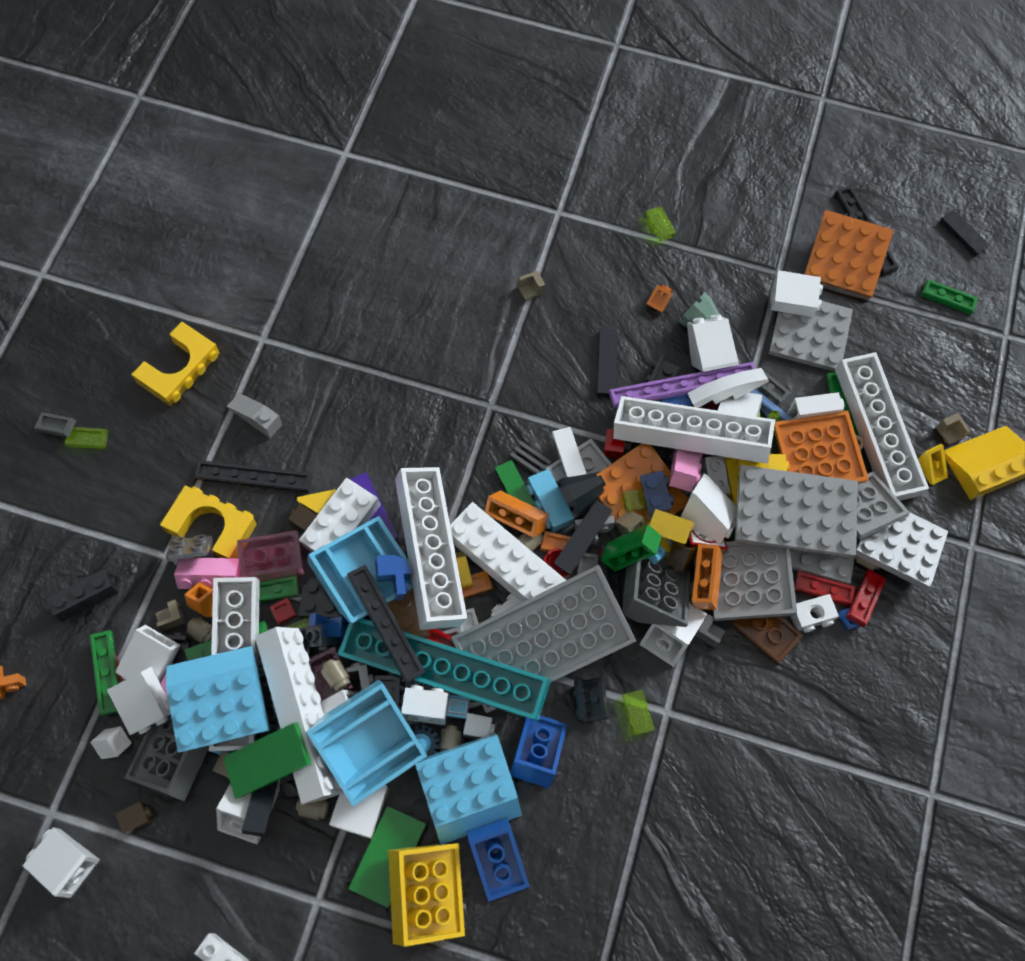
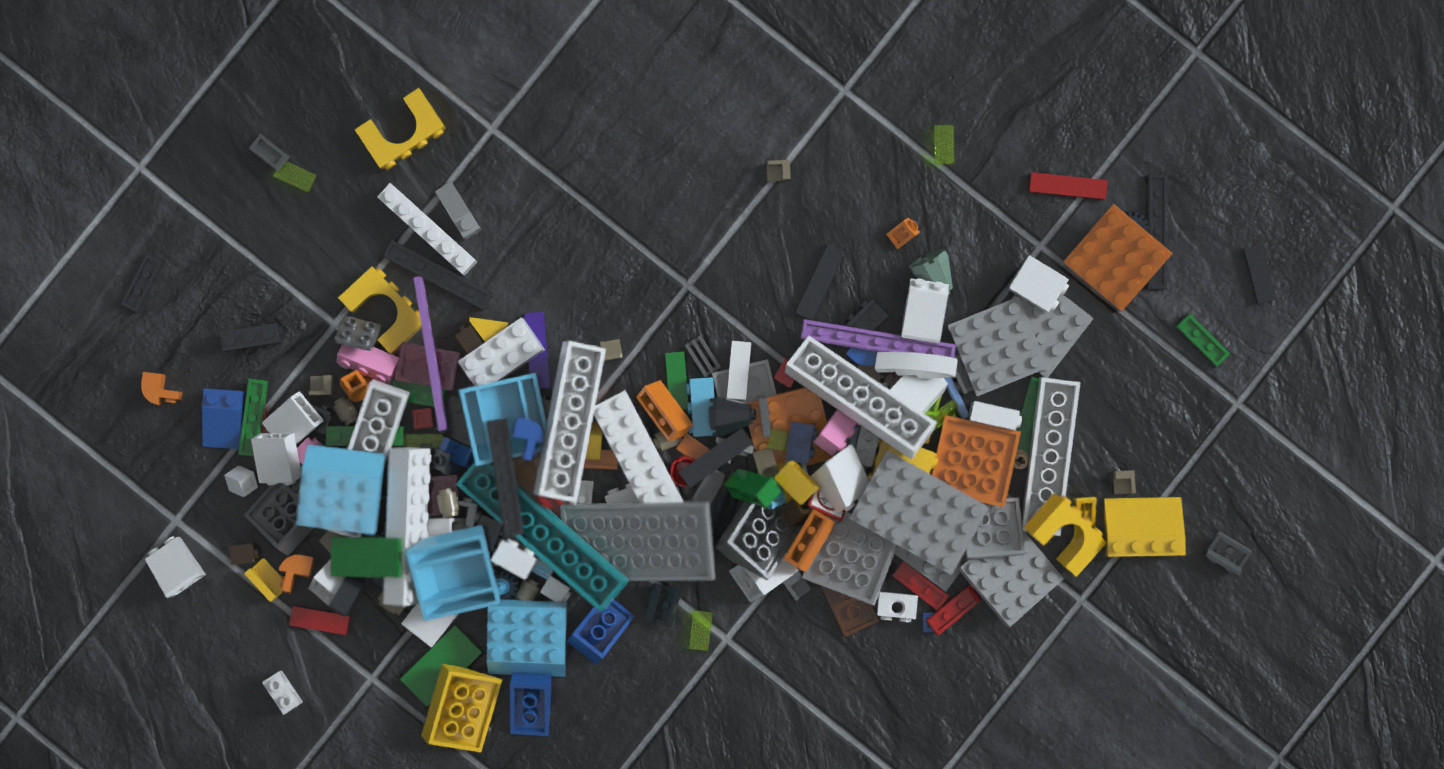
camera: 25 degrees right, 20 degrees up
(72, 684) = (222, 418): none -> blue slope
(169, 837) = (265, 579): none -> yellow panel
(193, 810) = (292, 566): none -> orange brick
(239, 859) = (319, 620): none -> red tile
(257, 446) = (427, 229): none -> white arch
(269, 539) = (430, 353): none -> medium lavender tile
(449, 483) = (613, 350): none -> dark tan panel
(612, 479) = (764, 414): none -> dark grey tile
(776, 220) = (1068, 186): none -> red tile
(788, 355) = (997, 346): none -> light grey plate
(951, 486) = (1085, 542): none -> yellow arch

